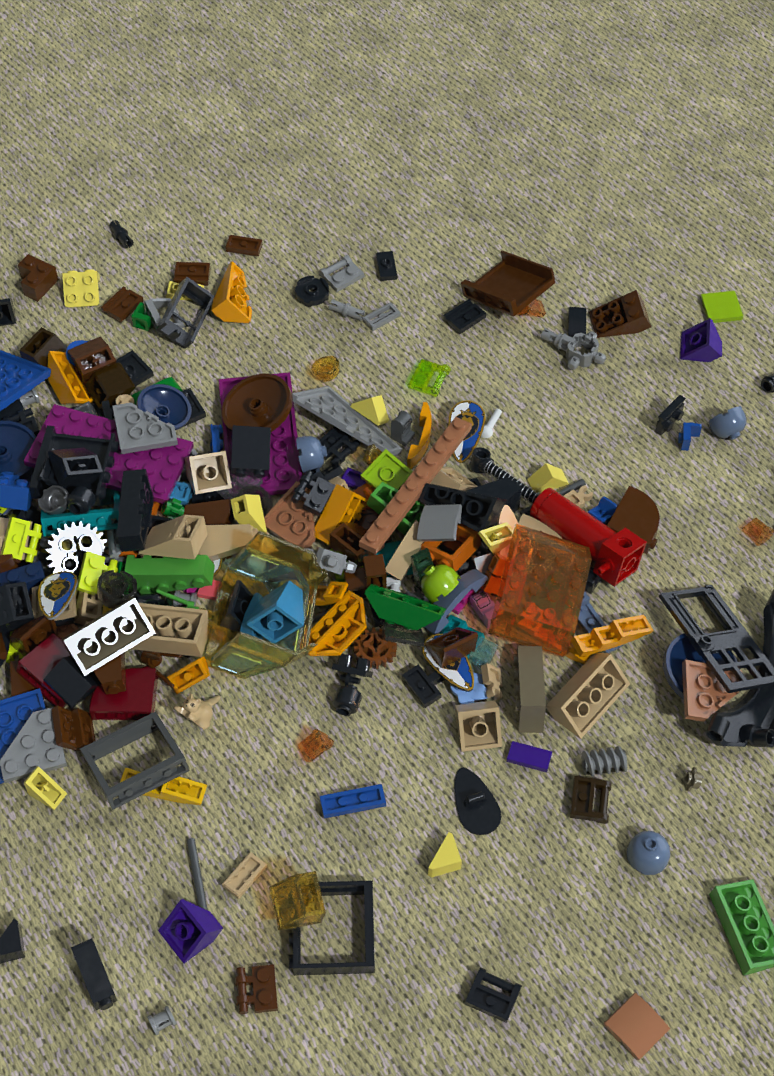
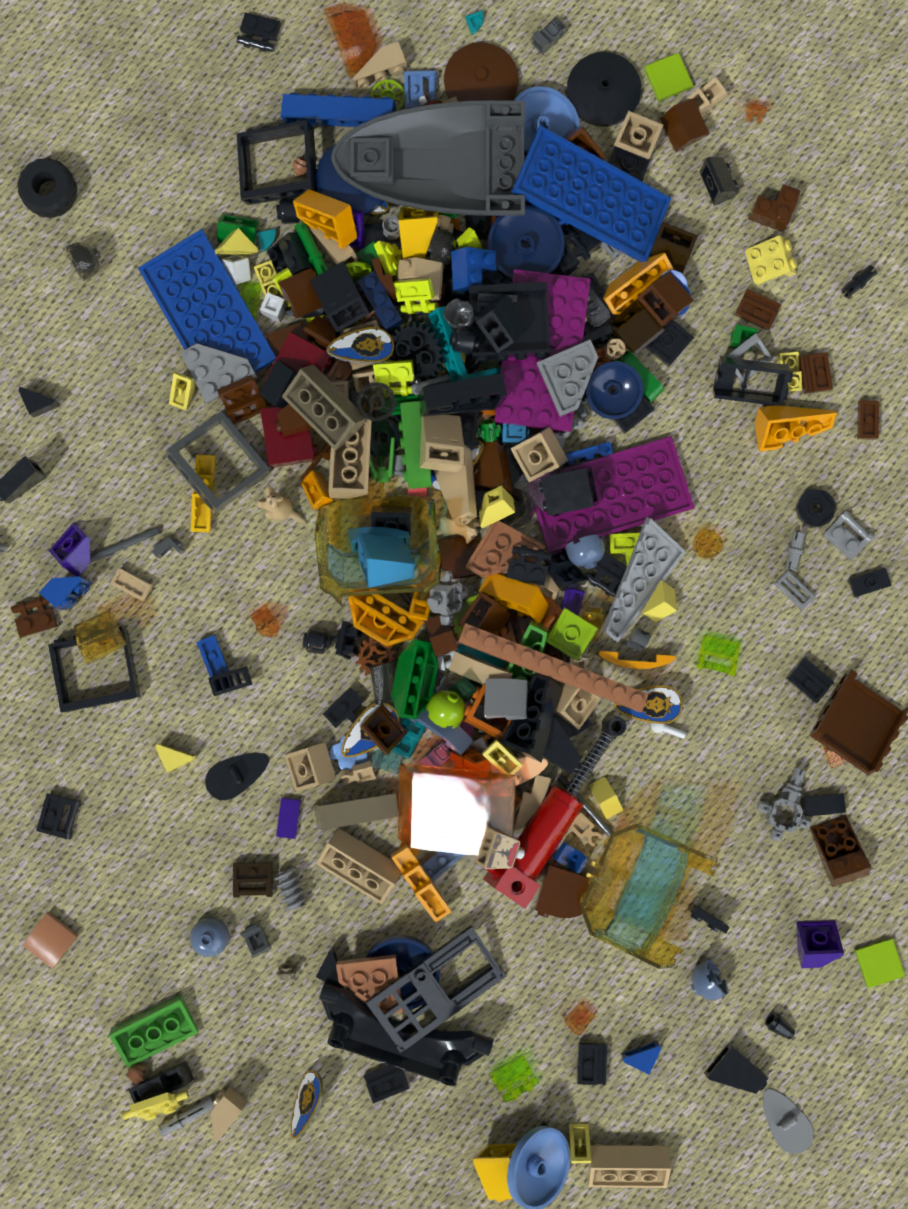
camera: 80 degrees right, 30 degrees up
(211, 834) = (163, 547): none -> dark grey bracket
(236, 941) = (64, 591): none -> blue slope
(258, 402) = (633, 485): reddish brown dish -> none
(312, 425) = (623, 544): none -> neon yellow plate
(375, 798) = (212, 680): none -> black slope
(584, 546) = (498, 850): none -> tan torso
(633, 458) = (638, 891): none -> windscreen
(656, 804) = (256, 939): none -> dark grey bracket
(688, 430) = (685, 935): blue bracket -> none
(691, 736) = (328, 970): none -> black slope

